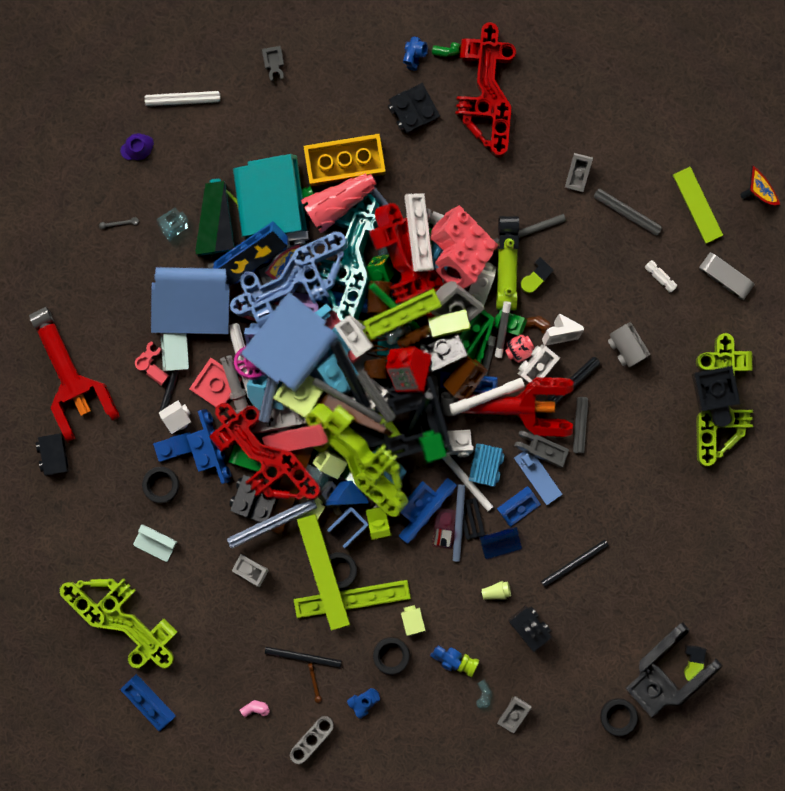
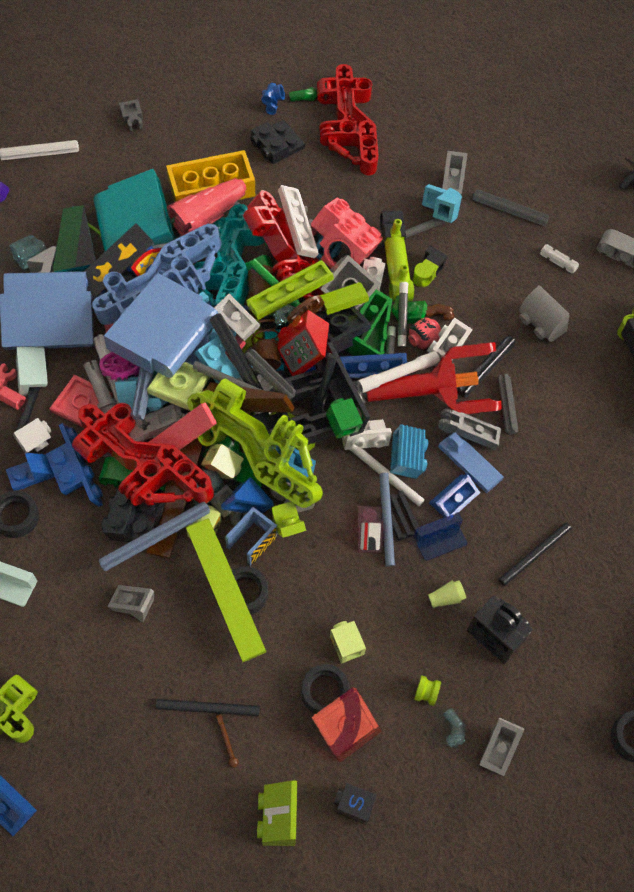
camera: 10 degrees left, 25 degrees down
(188, 238) = (43, 261): none -> light grey slope
(255, 706) = (147, 782): bright pink arm -> none
(307, 748) = (234, 805): light grey beam -> none
(347, 742) = (279, 814): none -> lime slope
(356, 598) = (269, 624): lime tile -> none
(363, 702) = (292, 761): blue plate -> none
(402, 740) = (355, 803): none -> black brick
(403, 684) = (346, 724): none -> clear red tile
(422, 505) = (338, 504): blue bracket -> none
(450, 659) = (401, 684): blue plate -> none
(465, 378) = (370, 354): reddish brown hinge -> none
(564, 331) = (470, 311): white slope -> none
(565, 207) = (444, 202): none -> medium azure brick
(697, 205) = (580, 197): lime tile -> none

